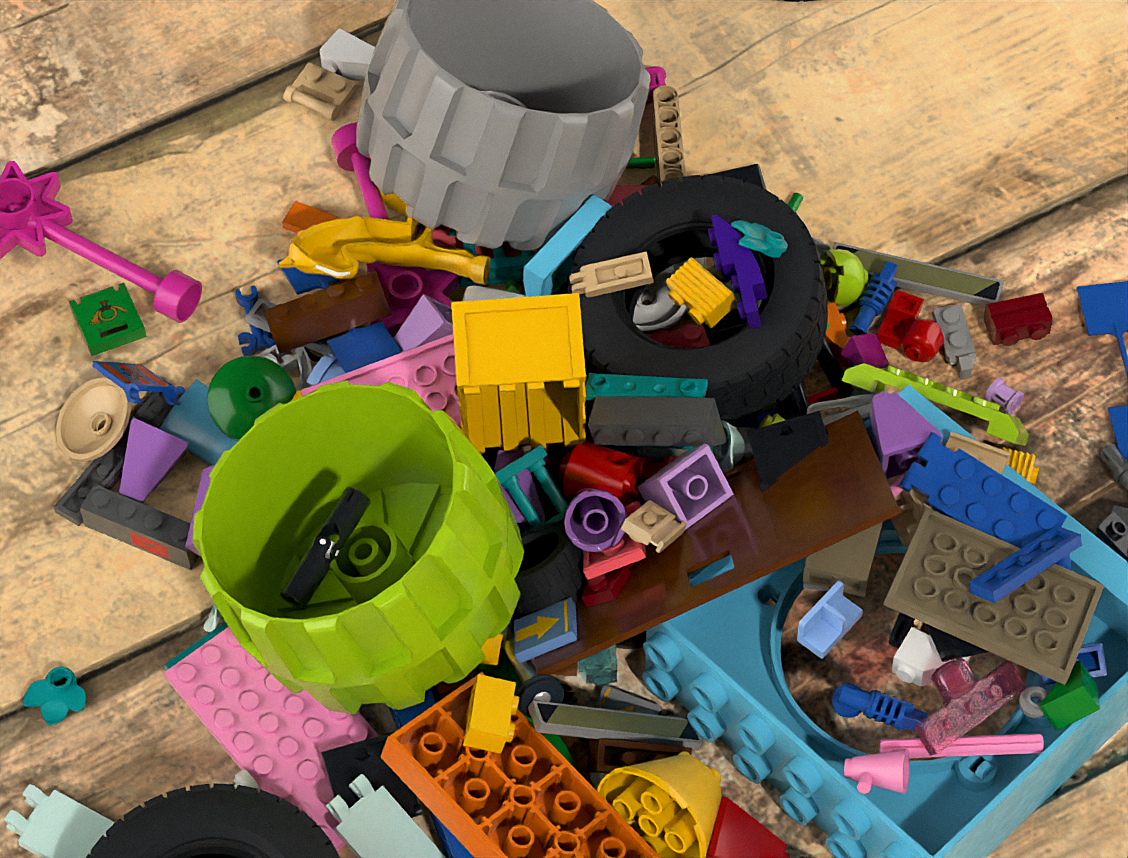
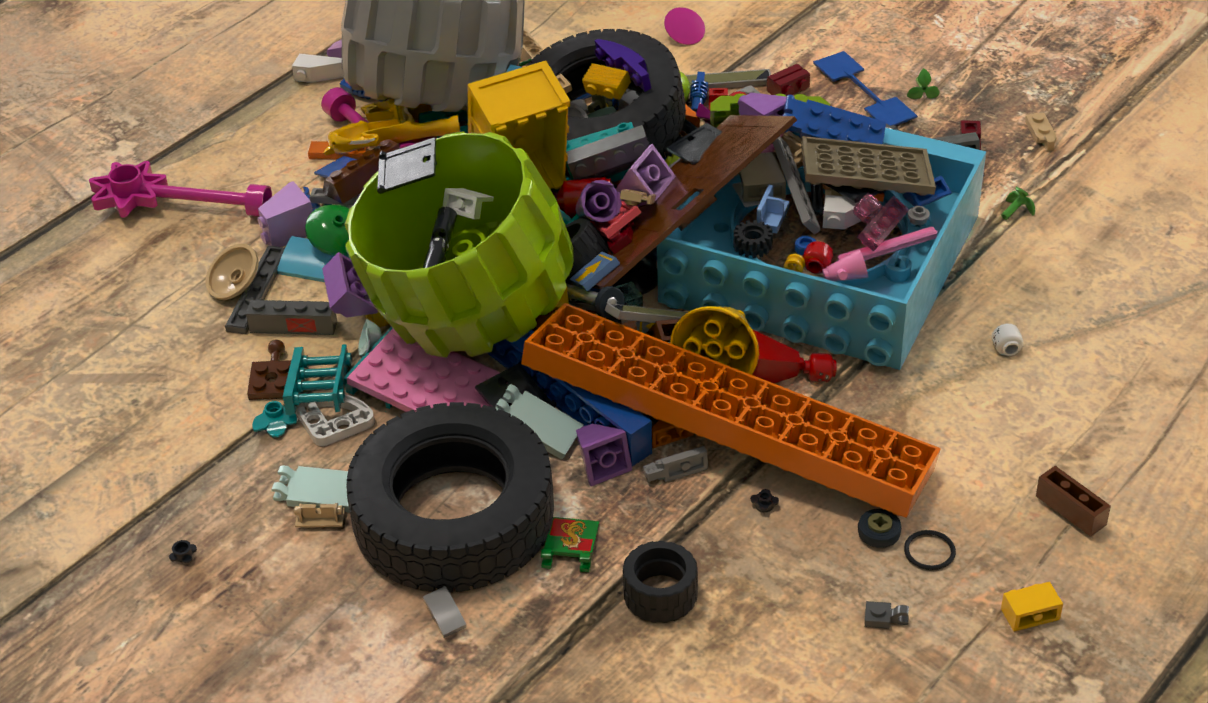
camera: 20 degrees left, 15 degrees down
(77, 605) = (262, 371): none -> reddish brown plate
(106, 311) = (209, 223): green container -> none
(111, 633) = (298, 373): none -> teal fence
(113, 731) = (323, 427): none -> white beam
(138, 378) = (255, 242): blue flag -> none
(148, 459) = (280, 275): medium lavender slope -> none
(197, 343) = (284, 216): none -> lavender slope
(312, 415) = (406, 165): none -> container
(323, 85) = (300, 89): tan plate -> none
(389, 484) = (465, 201): none -> white panel
(490, 714) = (584, 315): yellow brick -> none
(761, 238) = (637, 45): teal plate -> none
(777, 647) = (752, 239): none -> black tyre
(812, 734) = (796, 259): none -> yellow bush
(850, 733) = (817, 257): none -> red head
(876, 616) = (796, 185): none -> light grey tile
(882, 707) = (835, 239): blue hinge -> none
(916, 152) = (684, 26): none -> dark pink shield
(1026, 563) = (873, 147): blue piece -> none
(1071, 701) = (940, 205): green slope -> none

